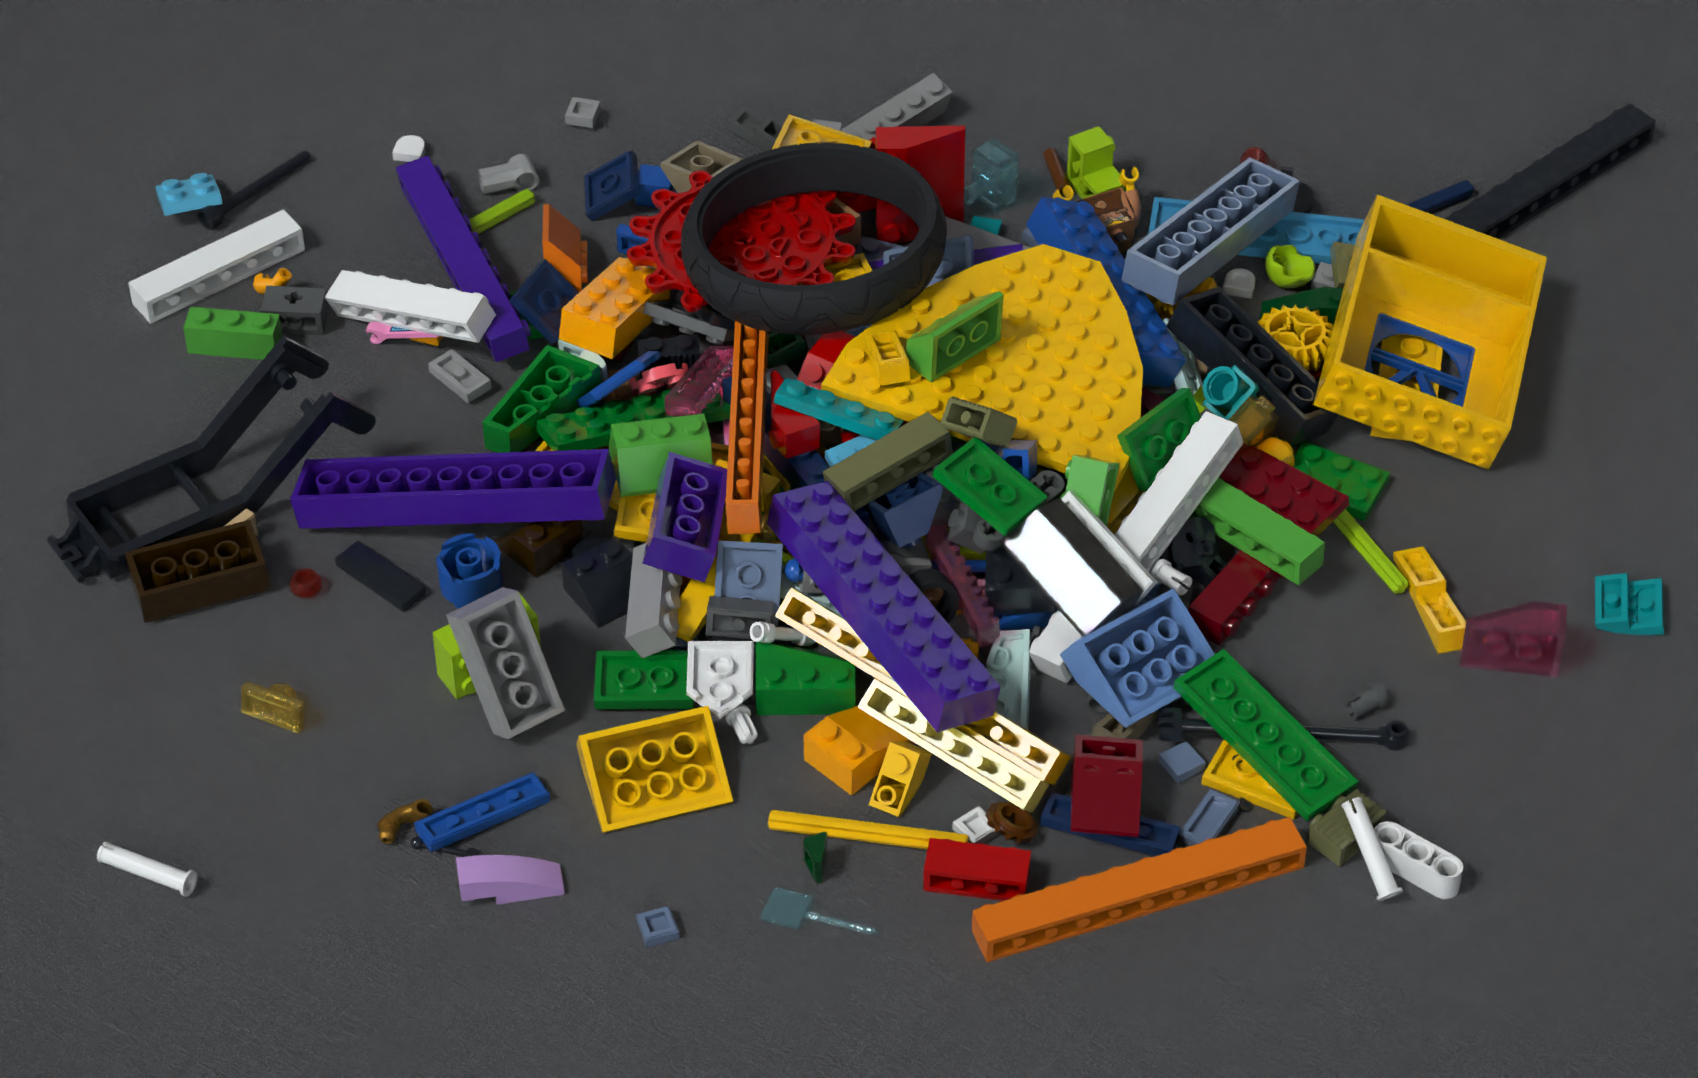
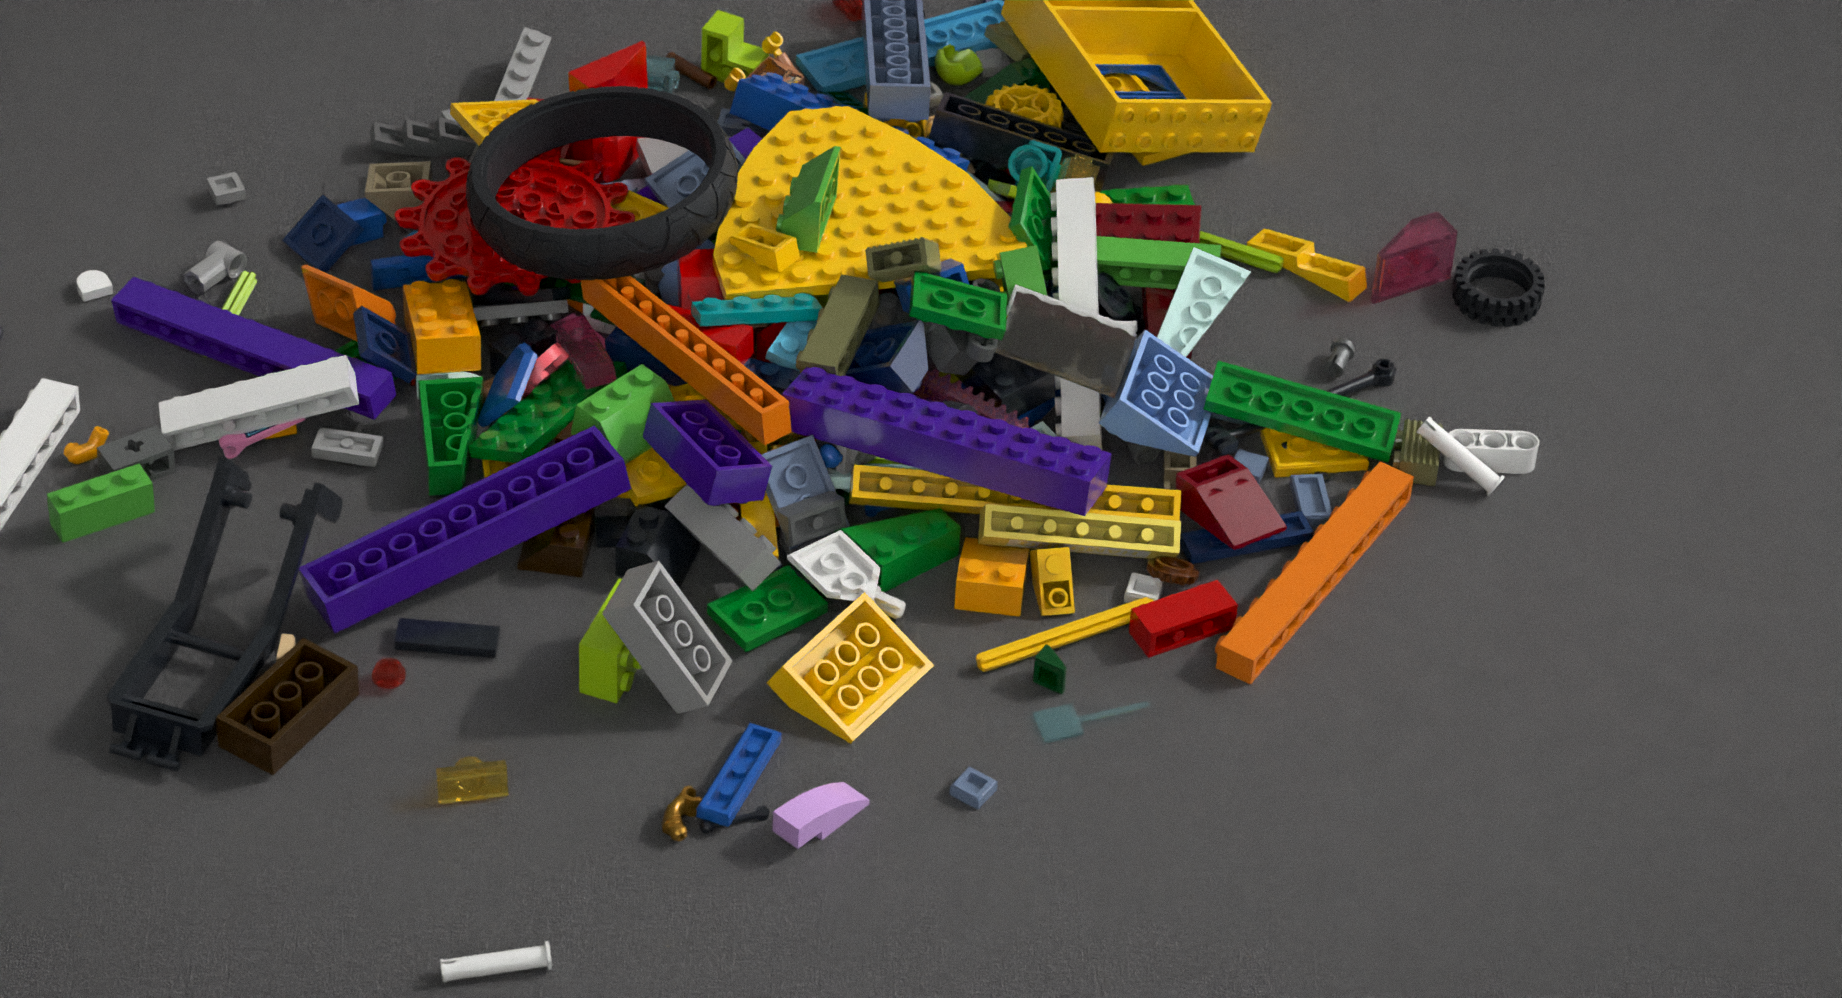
camera: 40 degrees left, 5 degrees down
(468, 569) = (533, 592): blue brick -> none
(767, 633) = (854, 515): white bar -> none
(1254, 584) = (1199, 298): none -> light aqua wing
(1593, 680) = (1498, 309): none -> black tyre
(1629, 605) = (1455, 200): teal slope -> none

